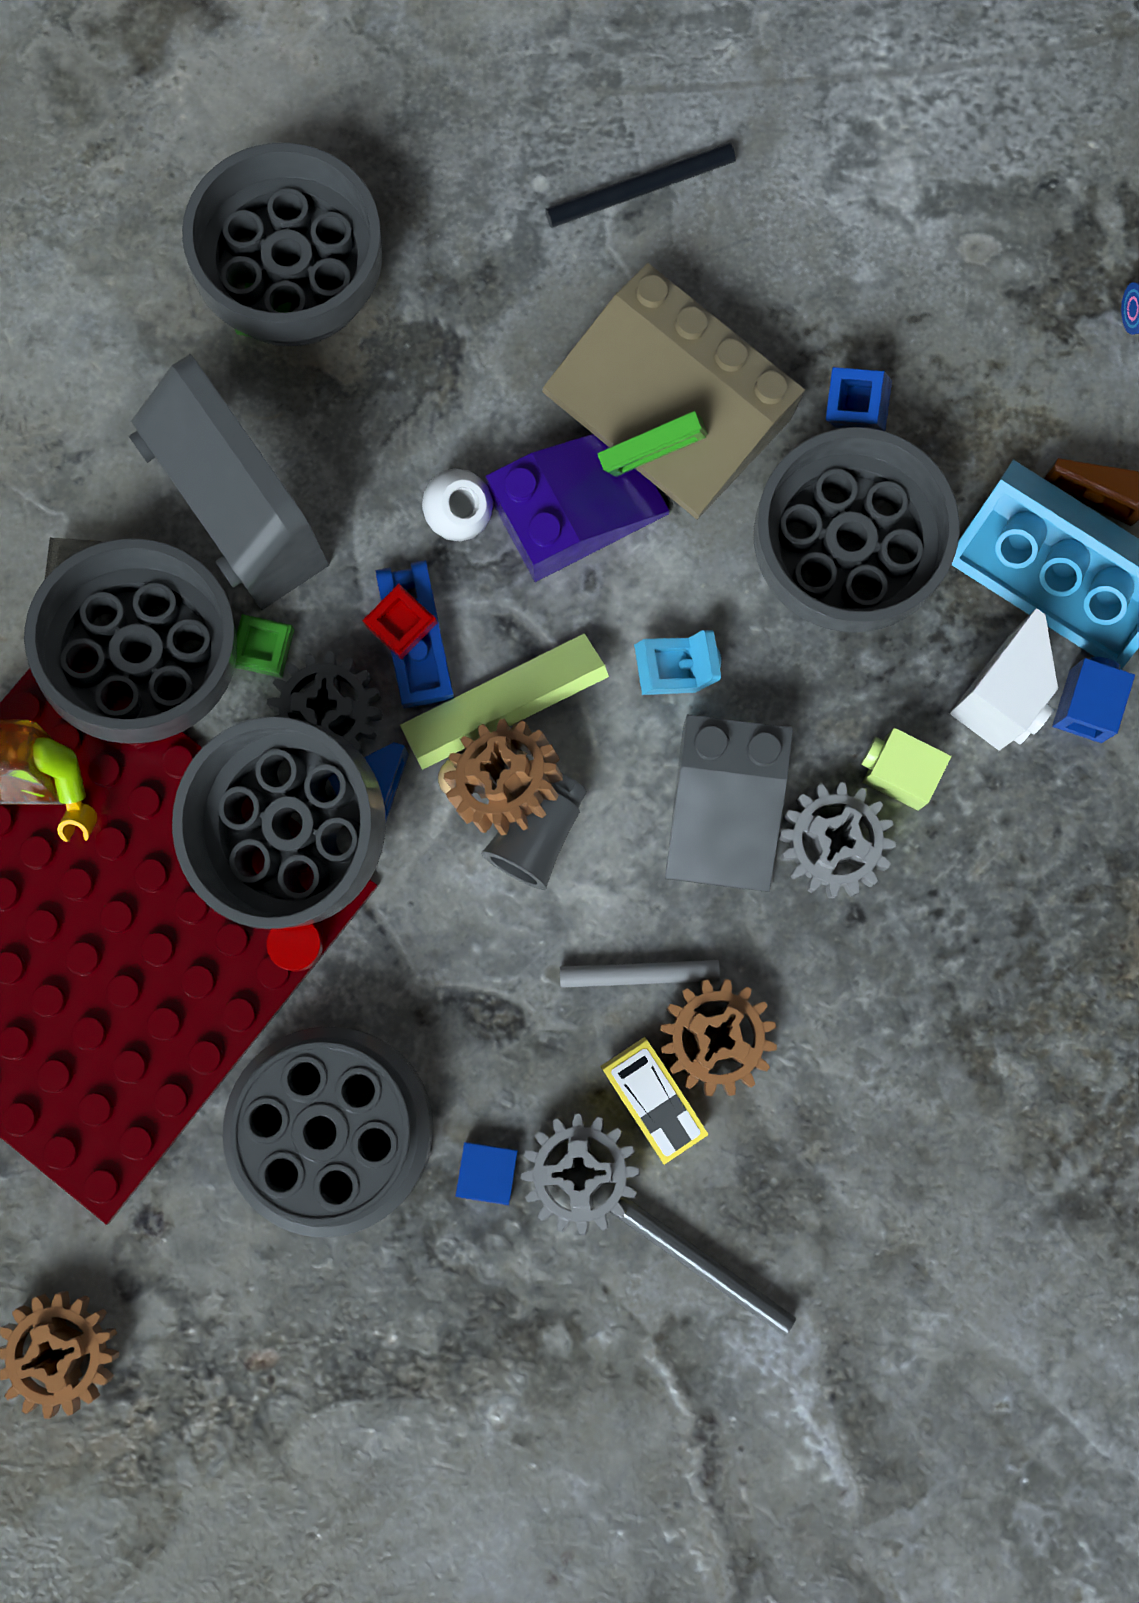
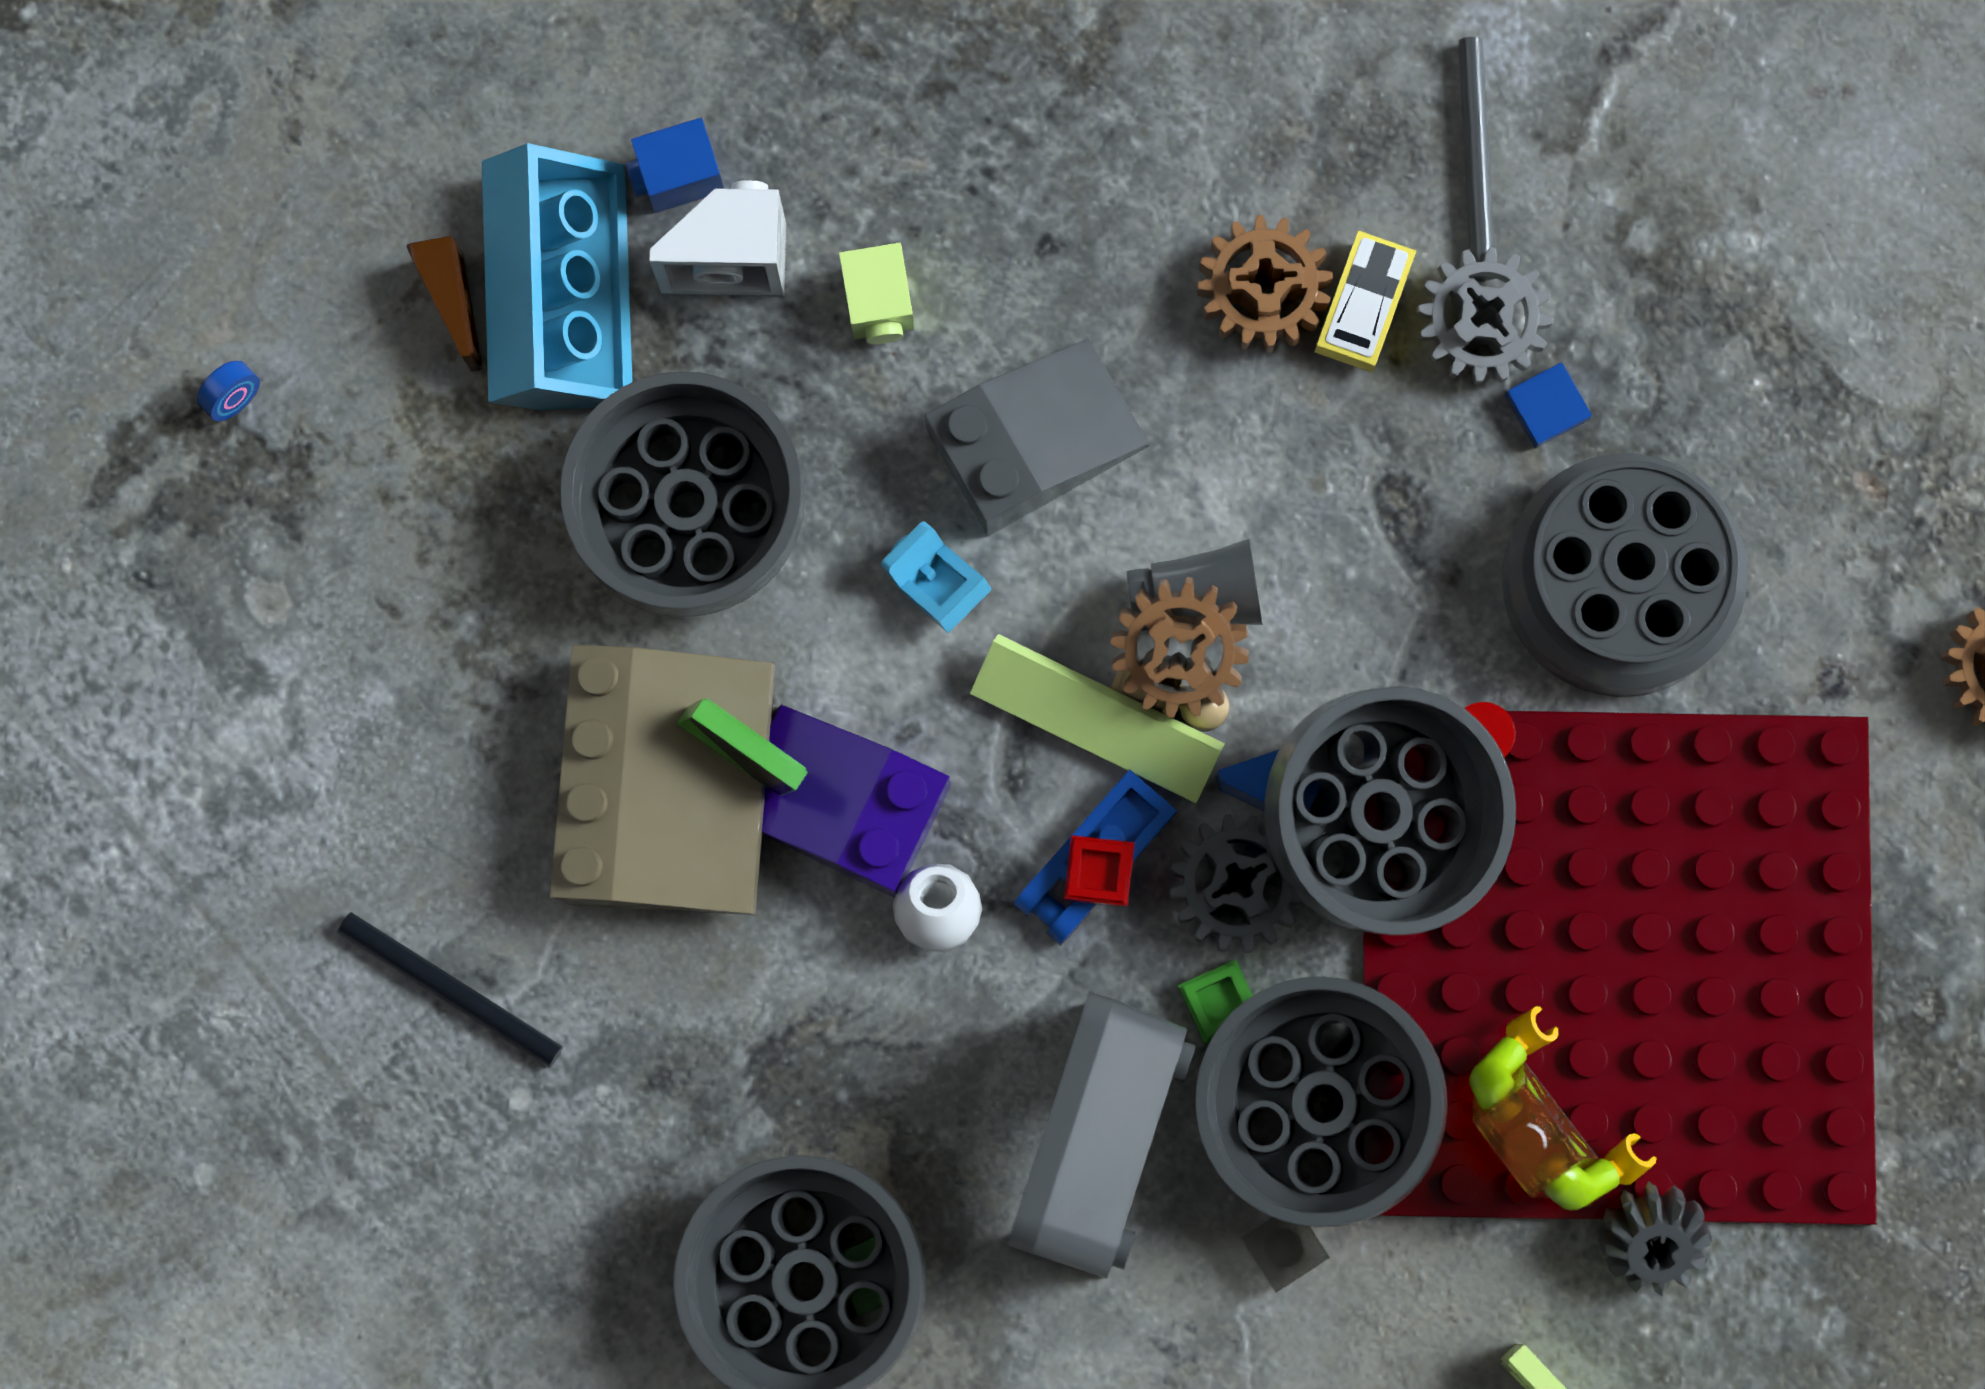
camera: 125 degrees left, 0 degrees up
(639, 973) = (1258, 401): light grey bar -> none
(858, 398) = (537, 591): blue brick -> none
(858, 852) = (971, 308): light grey gear -> none

